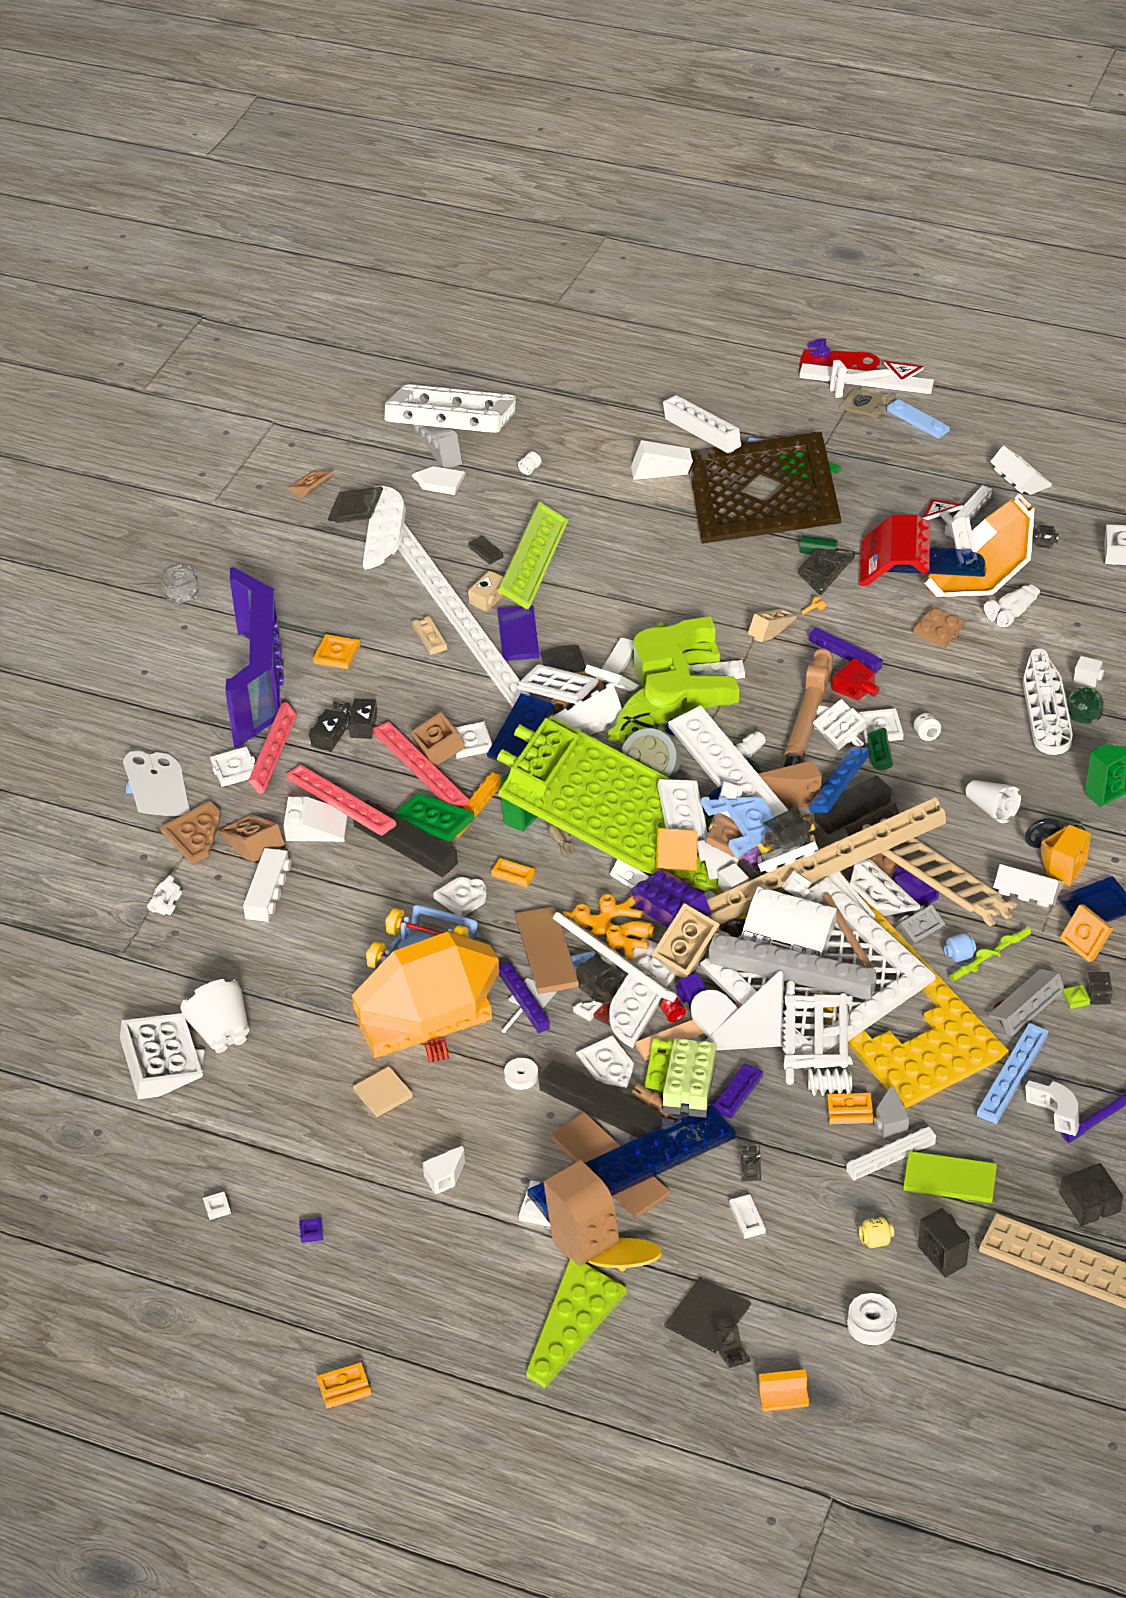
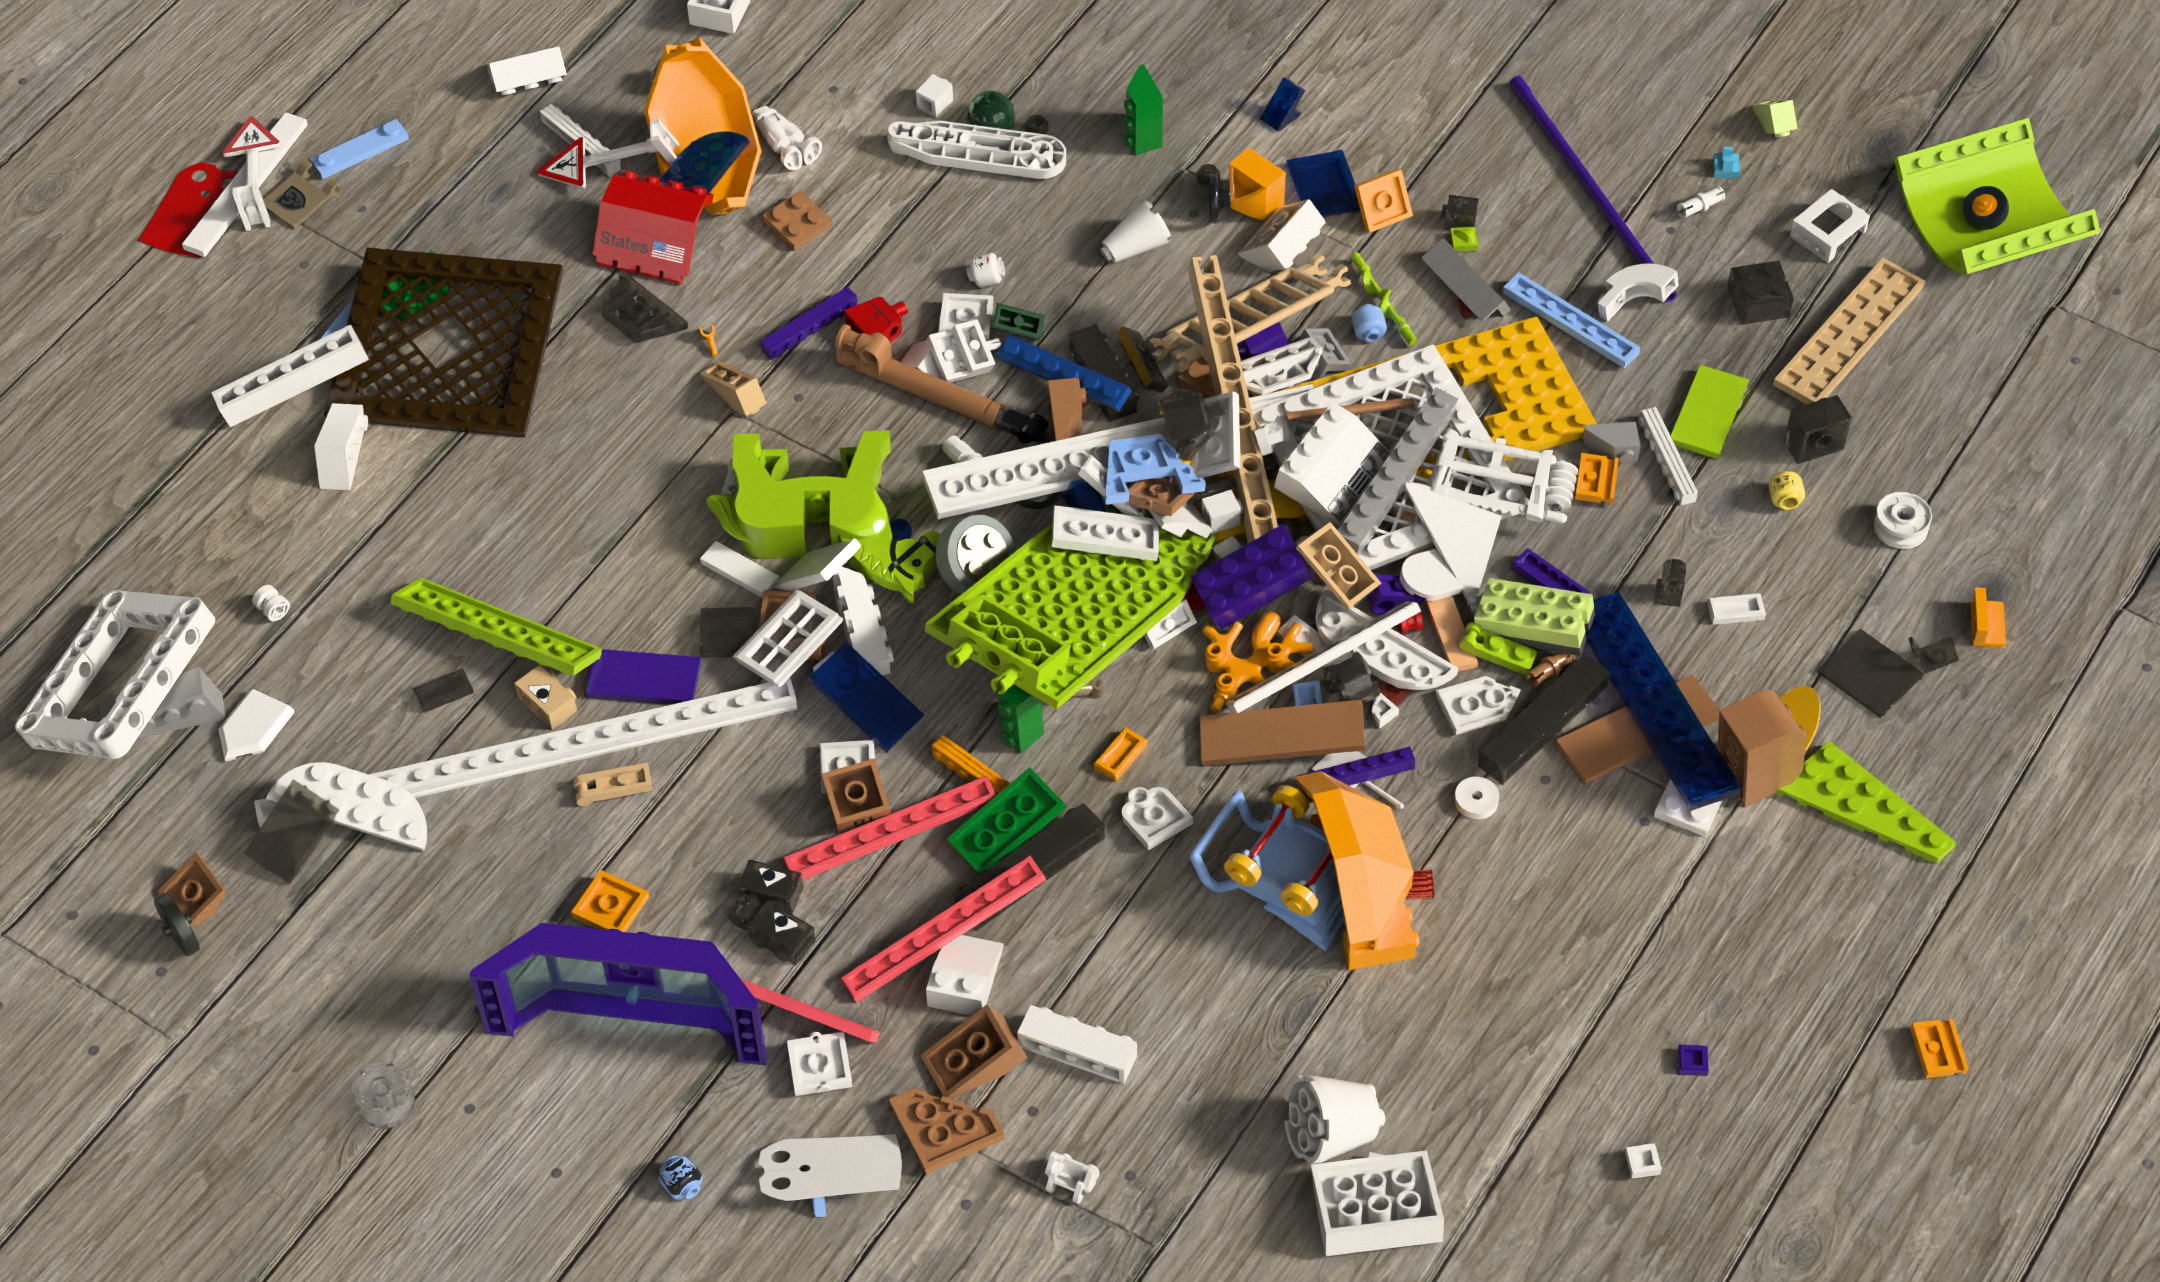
camera: 80 degrees left, 10 degrees up
(142, 720) = (680, 1177): none -> head
(280, 474) = (176, 924): none -> pearl dark grey wheel
(382, 1091) = (1479, 952): tan tile -> none
(444, 1169) = (1627, 897): white slope -> none
(676, 849) = (1170, 550): light orange tile -> none
(729, 668) = (802, 456): white plate -> none
(810, 543) = (589, 308): dark green brick -> none
(822, 349) = (157, 218): dark purple piece -> none
(1085, 731) = (1036, 124): none -> clear smoke plate

